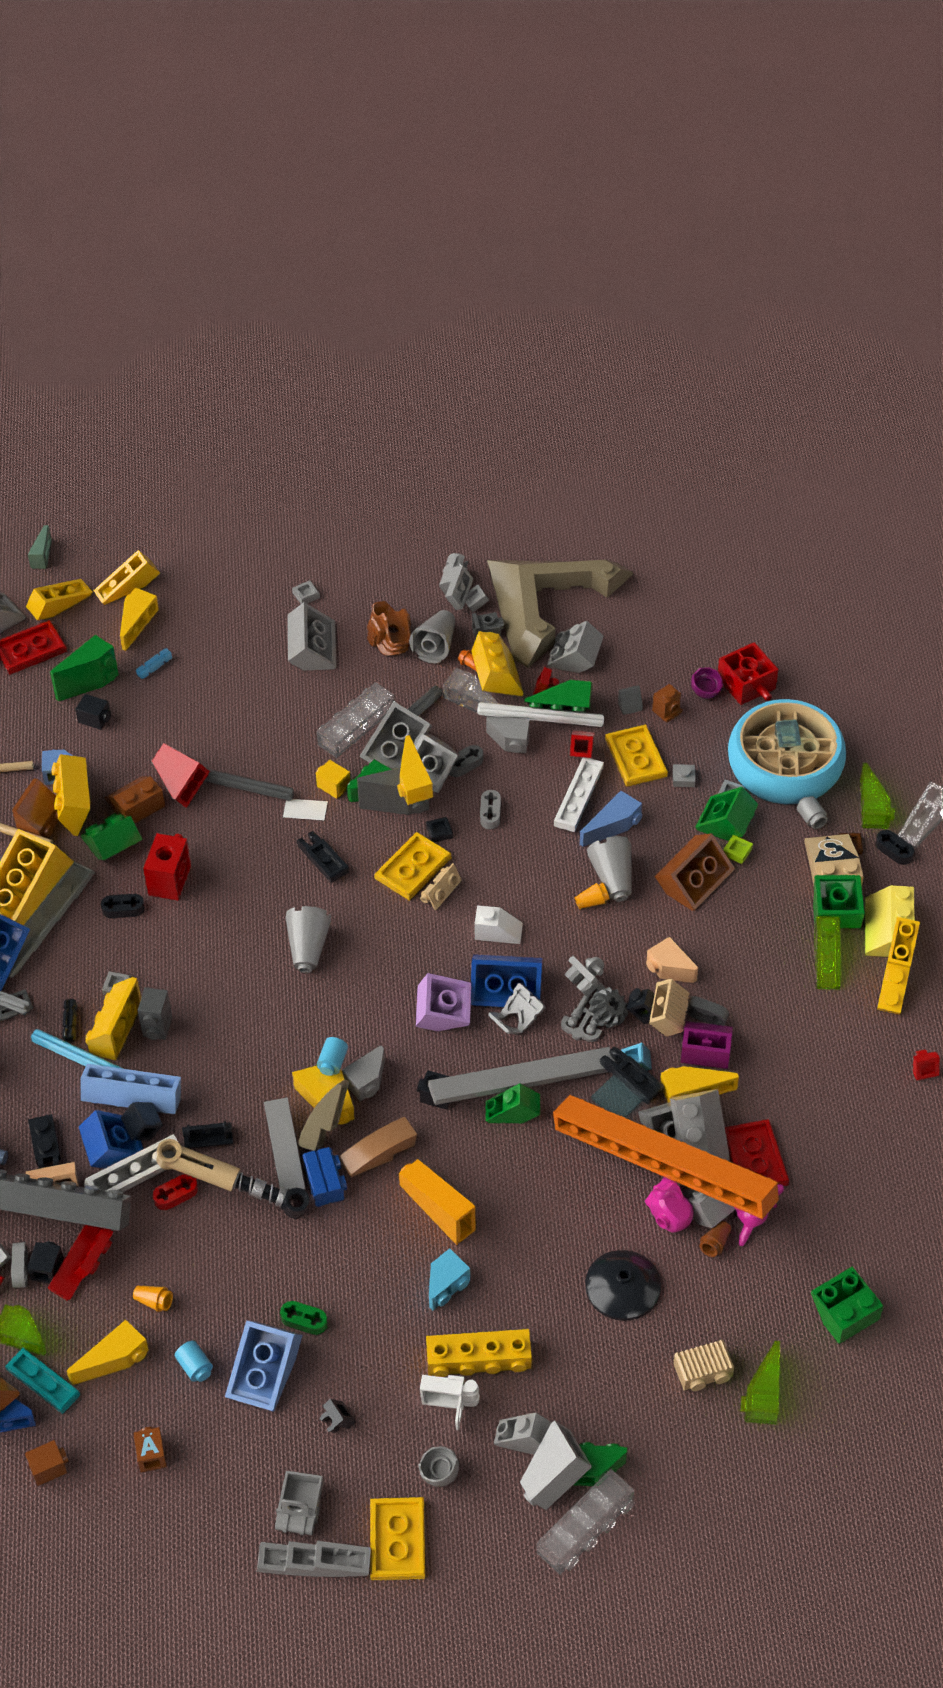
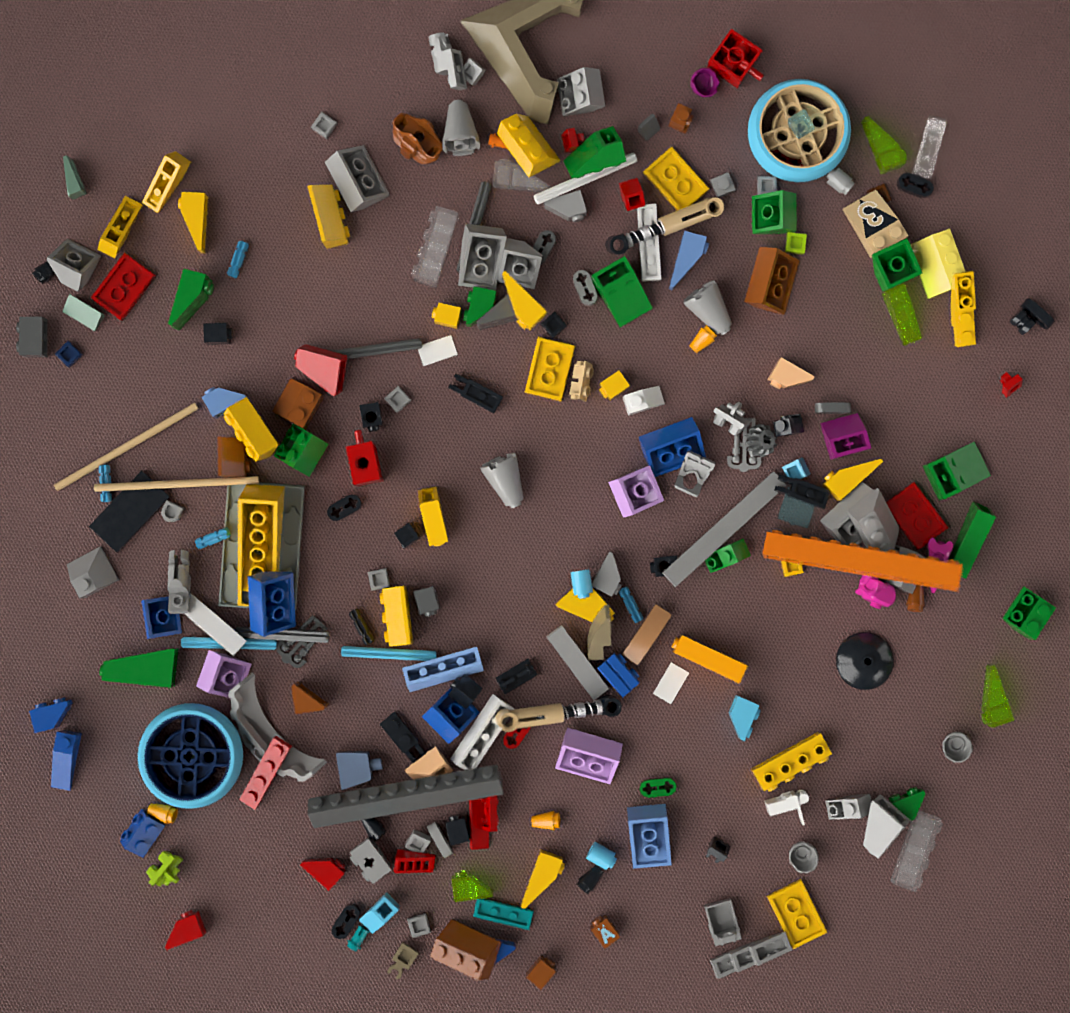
camera: 30 degrees left, 35 degrees up
(165, 1383) = (590, 879): none -> black cone
(172, 955) = (407, 535): none -> black panel
(202, 834) = (368, 408): none -> black brick
(209, 943) = (432, 516): none -> yellow slope
(238, 834) = (397, 399): none -> light grey tile
(241, 1247) = (589, 756): none -> lavender slope
(263, 655) = (329, 215): none -> yellow slope
(377, 1111) = (630, 604): none -> dark azure axle
(380, 1216) = (671, 683): none -> white sticker
(469, 898) = (613, 385): none -> yellow brick
(487, 623) = (495, 105): dark grey brick -> none
(526, 820) = (621, 291): none -> green slope
(583, 1152) = (791, 568): none -> yellow tile
(604, 780) = (666, 225): none -> piece
(669, 1007) = (809, 424): tan brick -> none
(693, 1420) = (957, 747): none -> light grey hair
(704, 1366) = (947, 702): tan brick -> none
(808, 1198) = (972, 536): none -> green slope
(822, 1124) = (956, 471): none -> green slope

